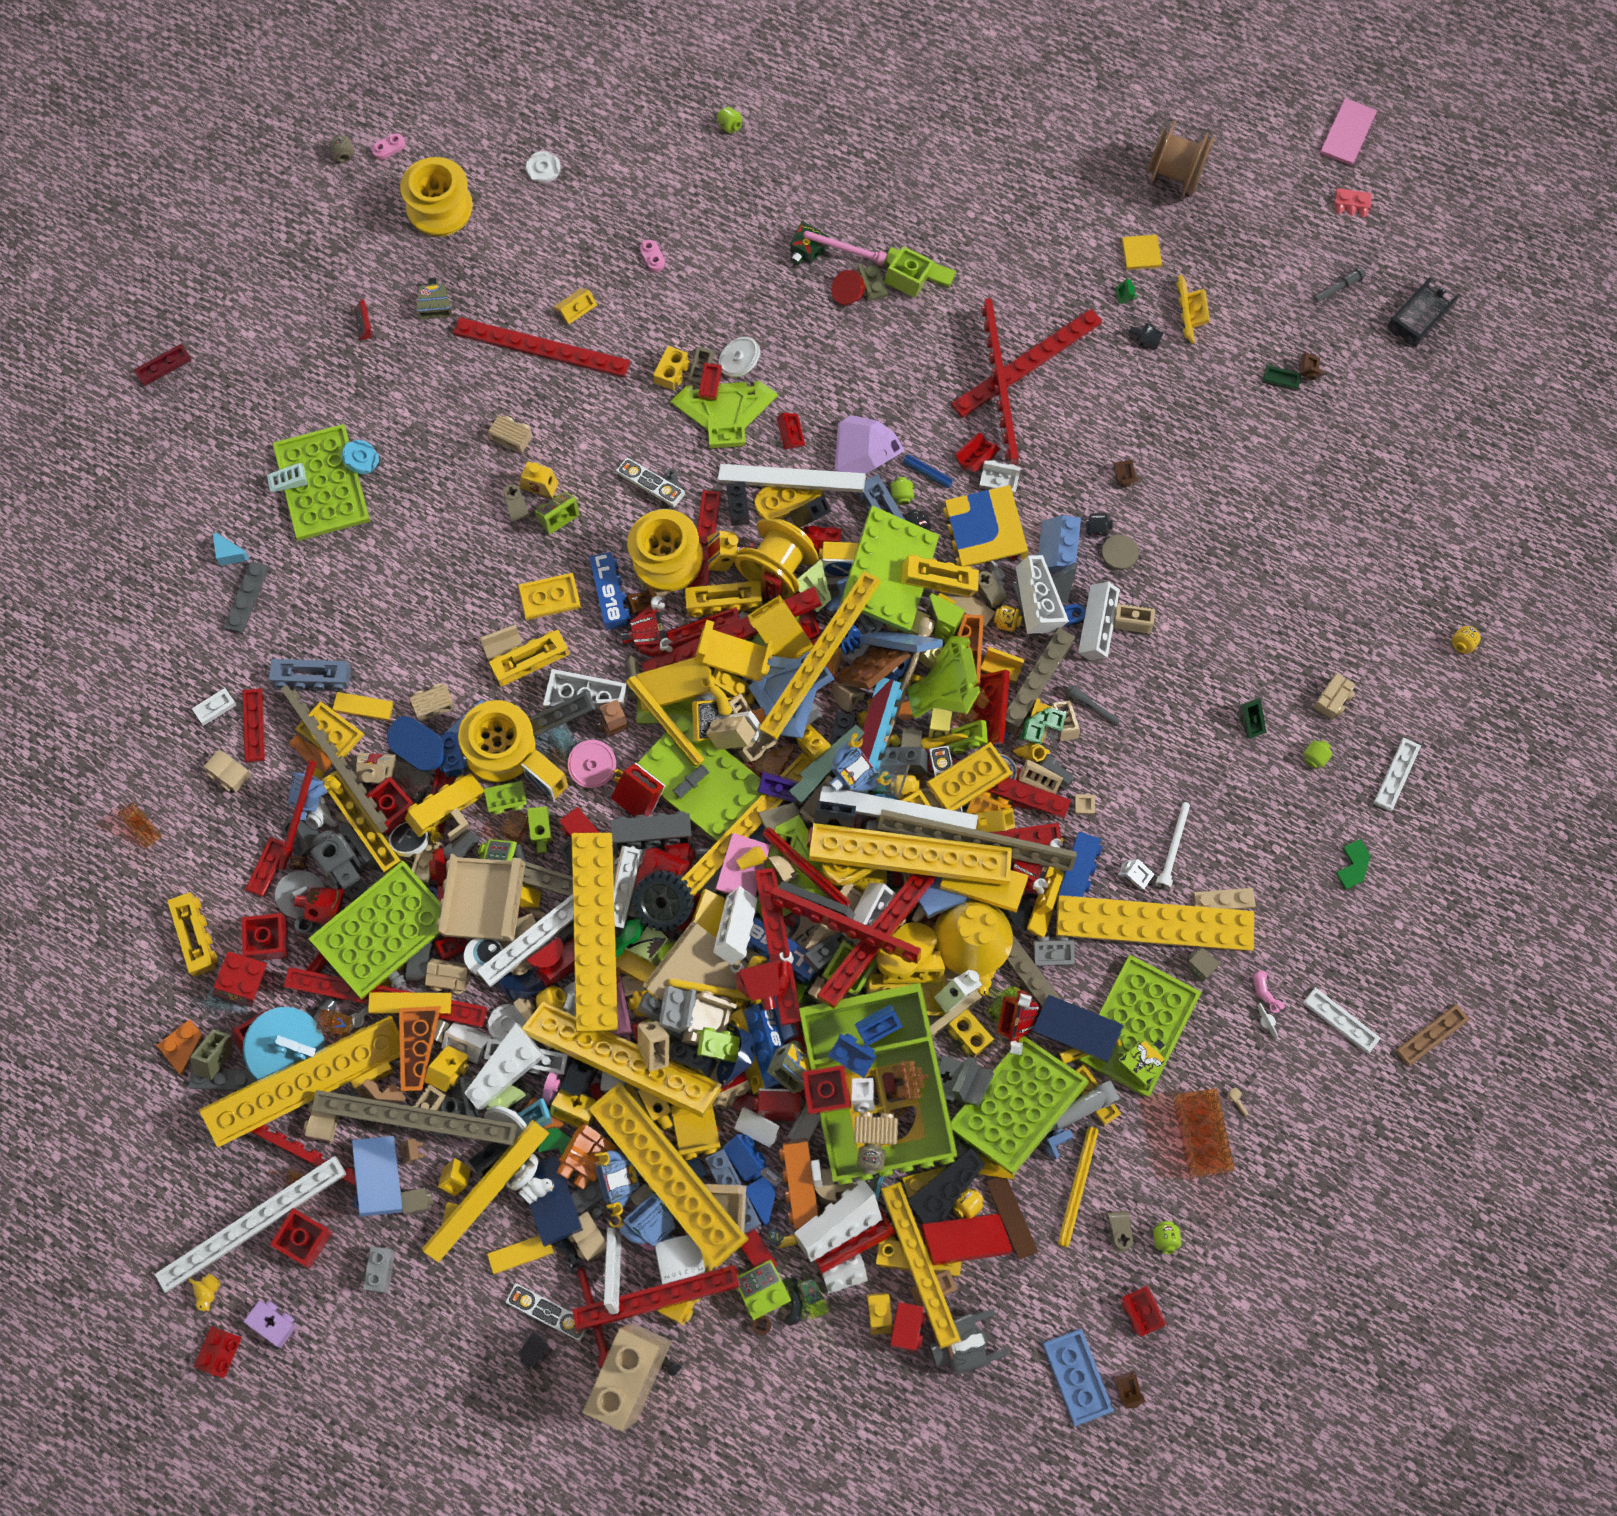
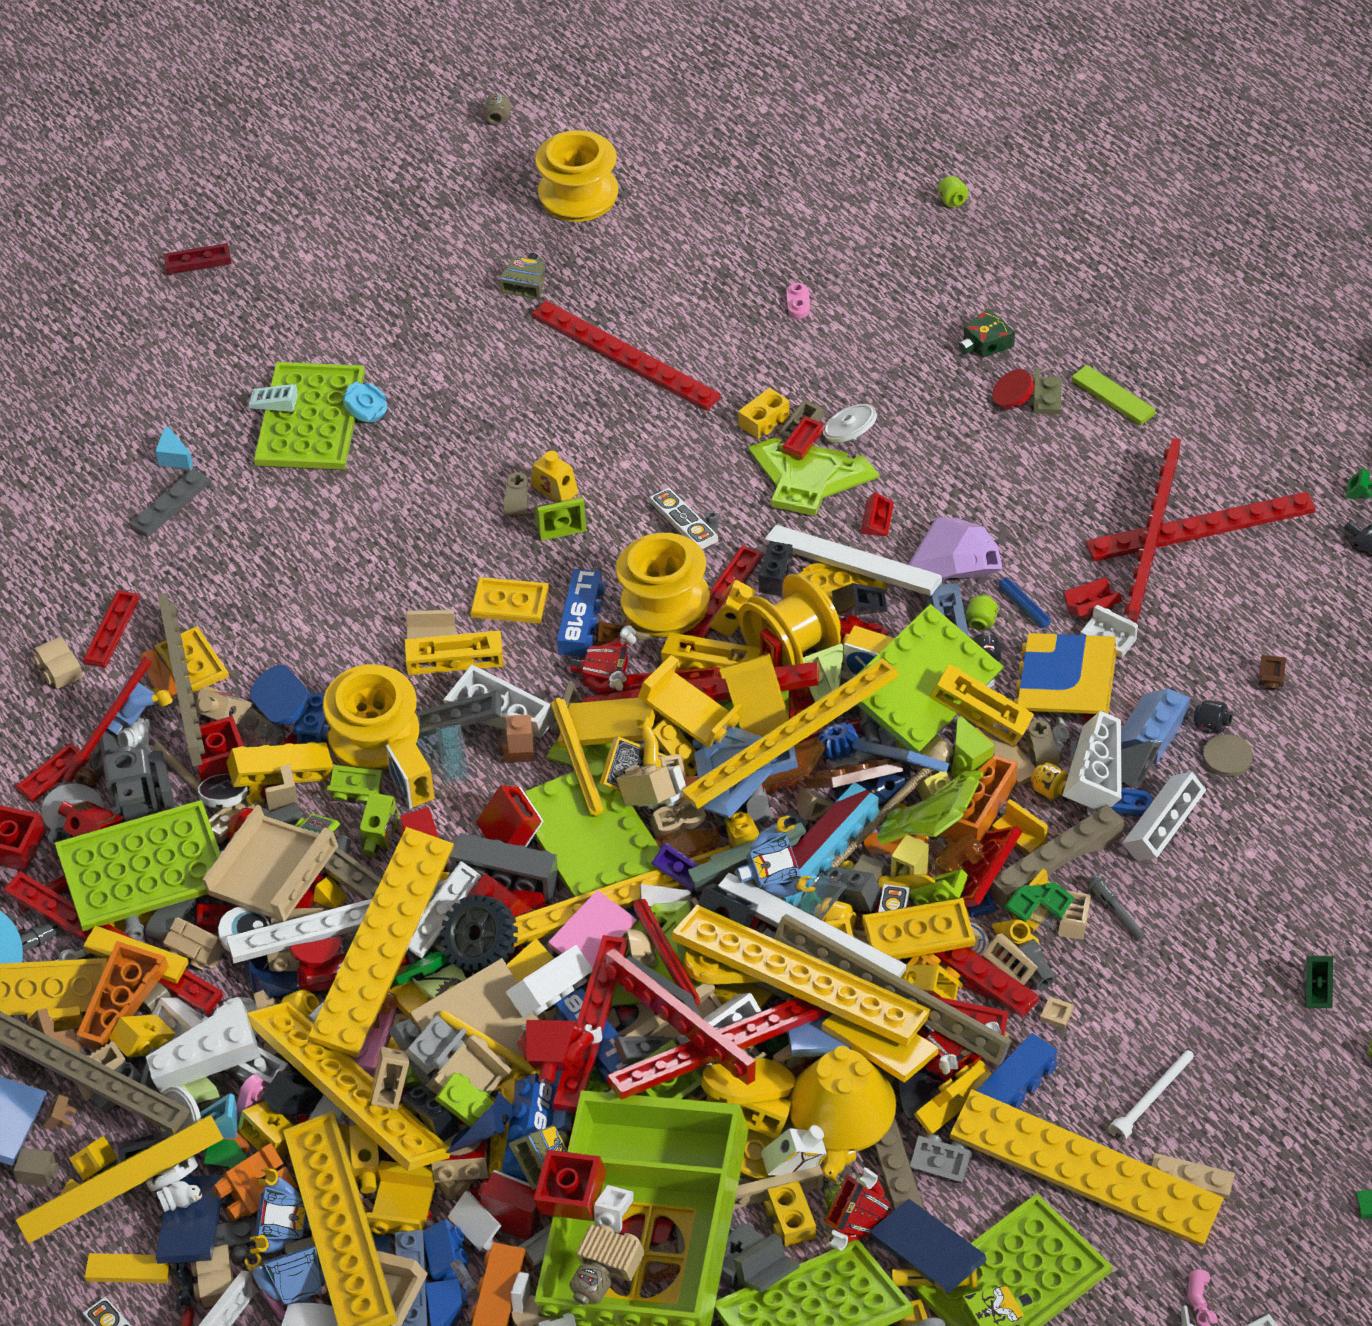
camera: 25 degrees right, 20 degrees down
(214, 706) = (77, 596): white plate -> none
(334, 1022) = (40, 946): clear orange brick -> none
(337, 671) = (200, 595): sand blue brick -> none
(363, 321) = (438, 275): red slope -> none
(363, 706) = (242, 646): yellow tile -> none
(363, 825) = (176, 752): yellow brick -> none
(388, 146) = (550, 121): bright pink plate -> none
(432, 702) = (320, 663): tan brick -> none
(510, 433) = (545, 426): tan brick -> none
(515, 826) = (349, 816): clear orange brick -> none
(542, 172) = (714, 190): white tile -> none
(576, 305) = (685, 325): yellow panel -> none
(591, 763) = (471, 779): bright pink shield -> none
(690, 781) = (576, 827): dark grey pin -> none
(751, 858) = (606, 922): yellow cone -> none
(852, 1055) = (621, 1159): blue bracket -> none
(877, 257) = (1065, 370): bright pink piece -> none
(878, 1025) = (667, 1137): blue slope -> none
(908, 272) = (1094, 392): lime slope -> none
(912, 1078) = (680, 1206): clear orange hips -> none
(1134, 618) = (1210, 826): tan brick -> none
(1136, 873) = (1088, 1107): white bracket -> none
(1202, 963) = (1128, 1236): dark tan brick -> none

